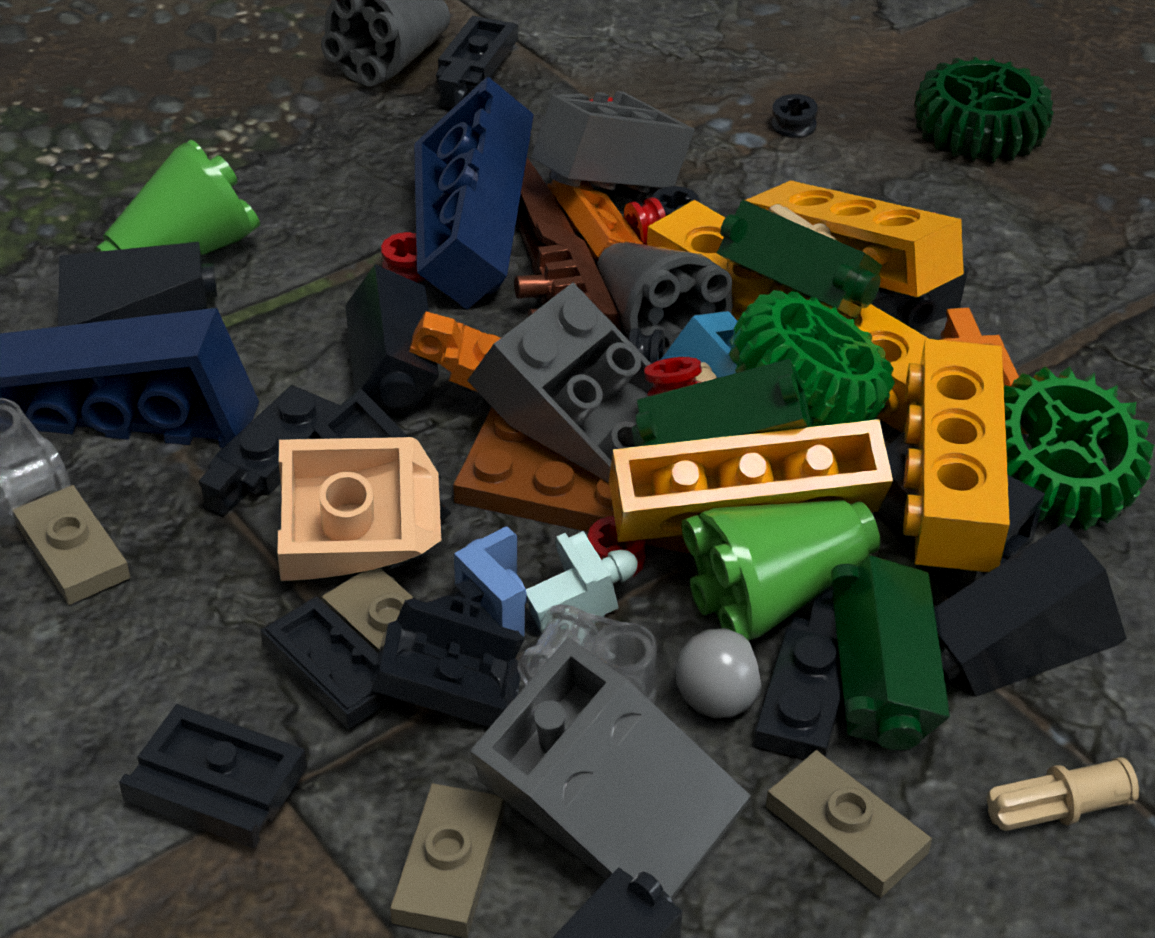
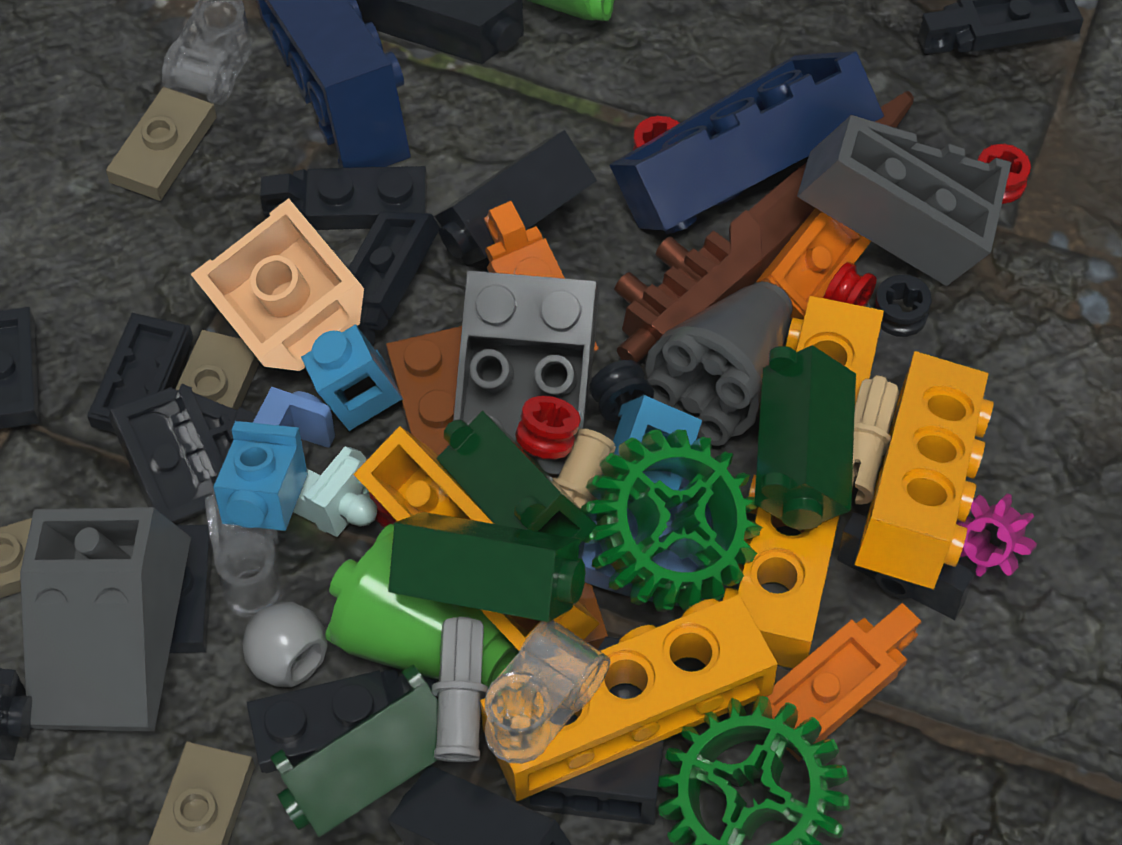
camera: 60 degrees right, 15 degrees up
(479, 499) = (342, 361): none -> dark azure brick
(559, 585) = (261, 476): none -> dark azure brick
(820, 435) = (486, 566): none -> dark green brick
(895, 535) = (459, 690): none -> light grey axle
(957, 461) = (541, 691): none -> clear piece

